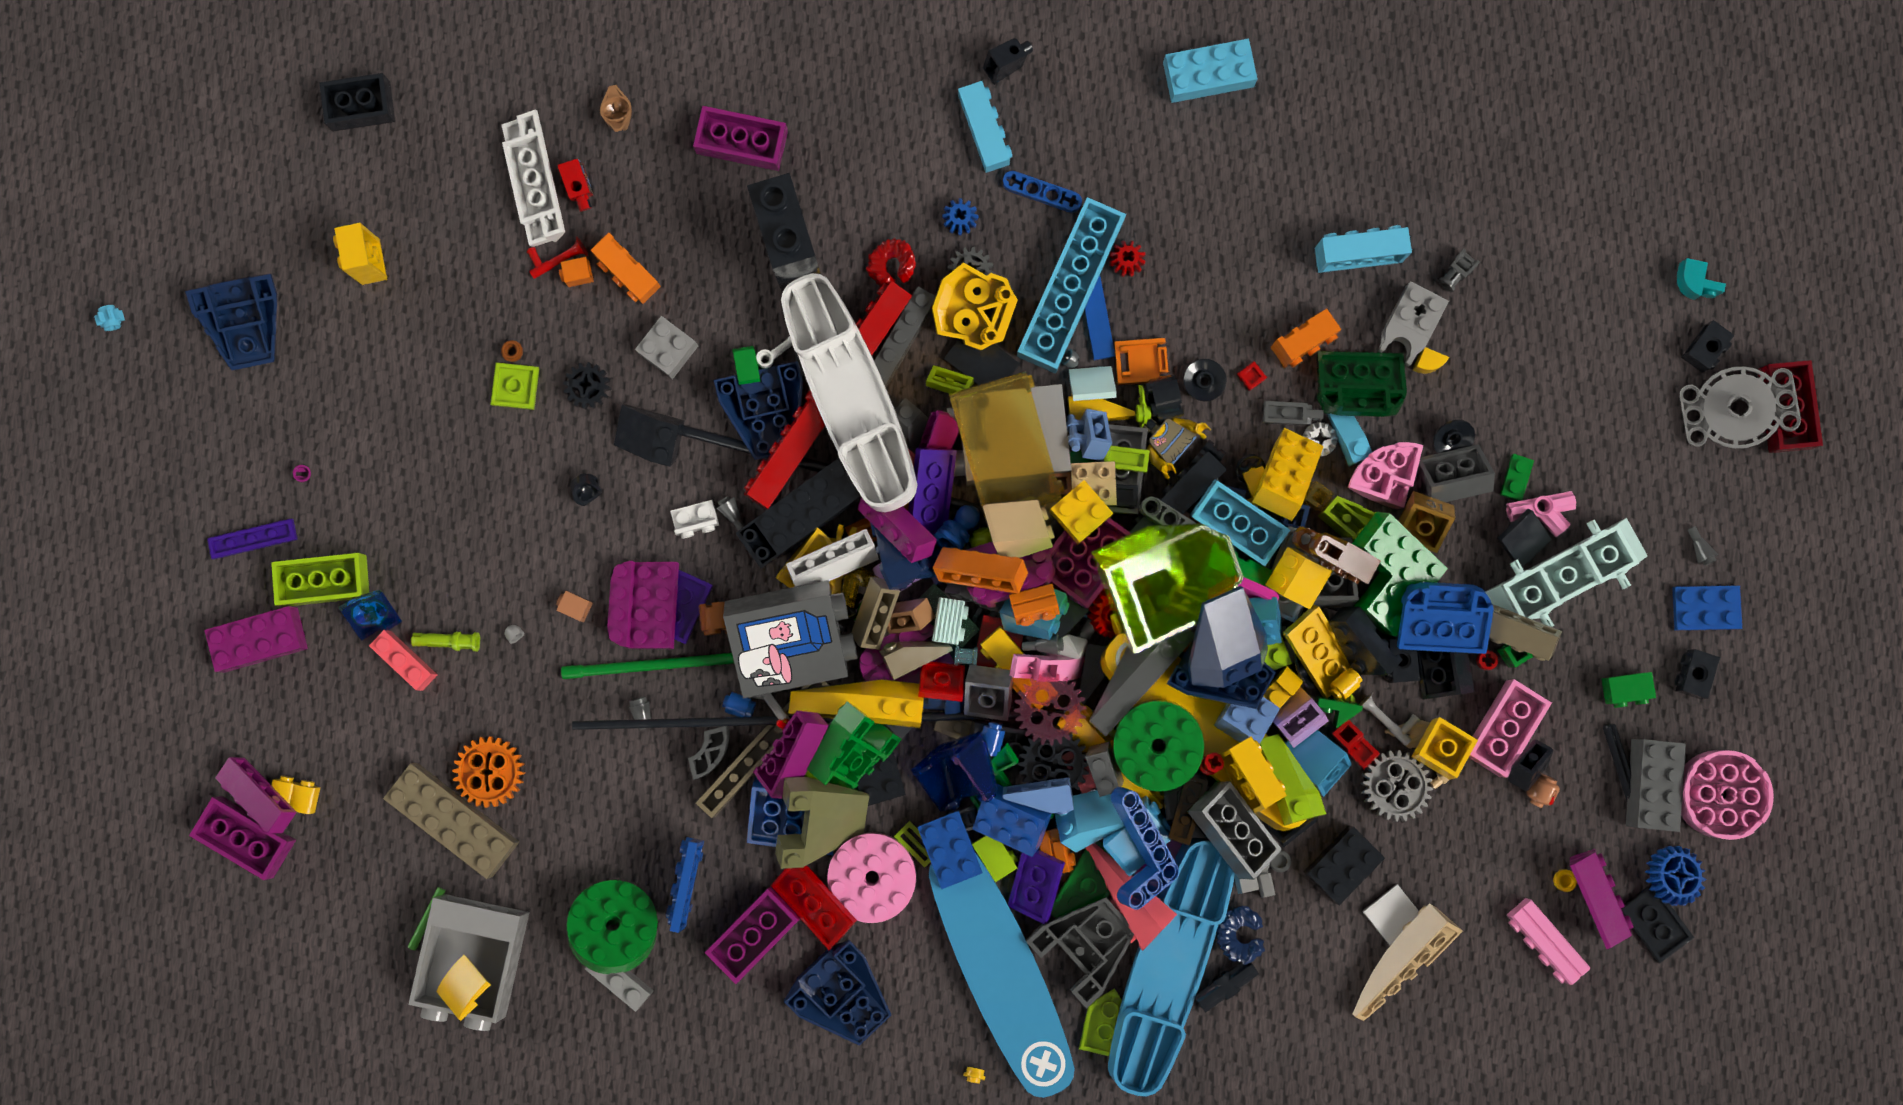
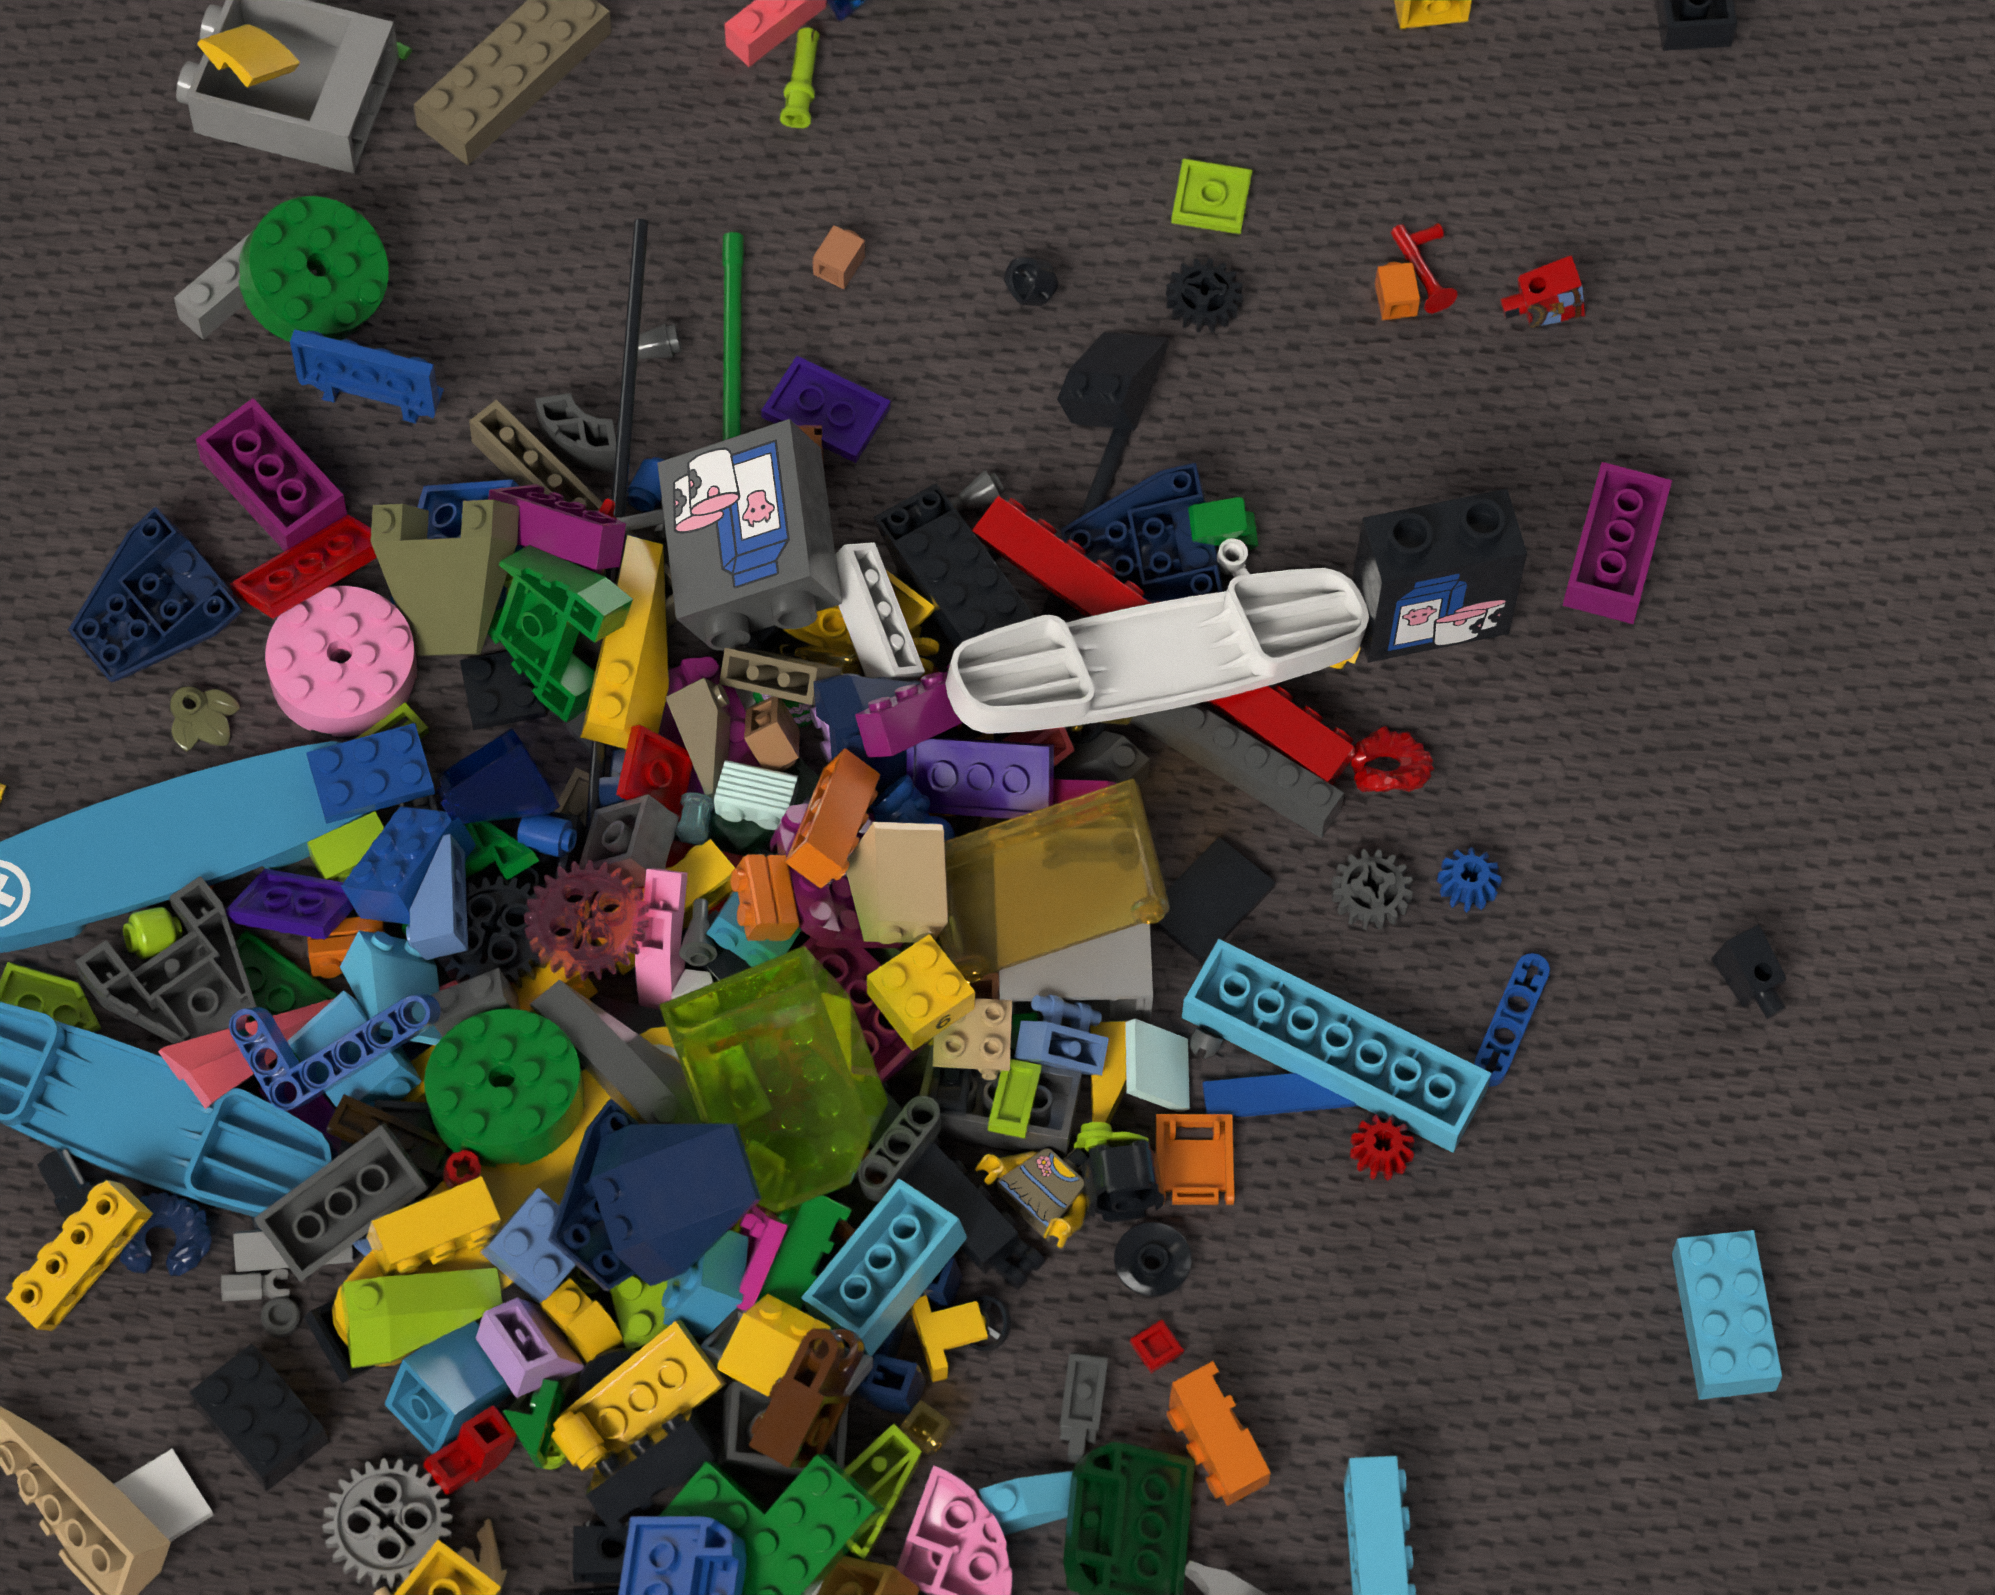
camera: 90 degrees right, 20 degrees down
(469, 770) = (580, 149): orange gear -> none
(505, 351) = (1273, 185): dark orange plate -> none
(513, 633) = (803, 167): light grey hinge -> none
(532, 179) = (1555, 229): white slope -> none
(616, 109) = (1668, 357): medium nougat hat -> none
(625, 269) = (1398, 357): orange wedge -> none
(643, 604) = (831, 350): magenta plate -> none
(666, 347) = (1261, 412): light grey piece -> none
(695, 518) = (970, 441): white bracket -> none
(914, 953) = (204, 721): none -> olive plate
(948, 385) = (1175, 871): lime tile -> none
(957, 301) = (1312, 847): yellow brick -> none
(984, 127) = (1630, 930): medium azure brick -> none
(1055, 966) = (151, 932): none -> lime head
(1265, 979) = (78, 1255): none -> yellow brick
(1288, 474) = (966, 1365): yellow brick -> none
(1327, 431) = (1018, 1440): white gear -> none
(1399, 733) = (481, 1538): light grey piece -> none

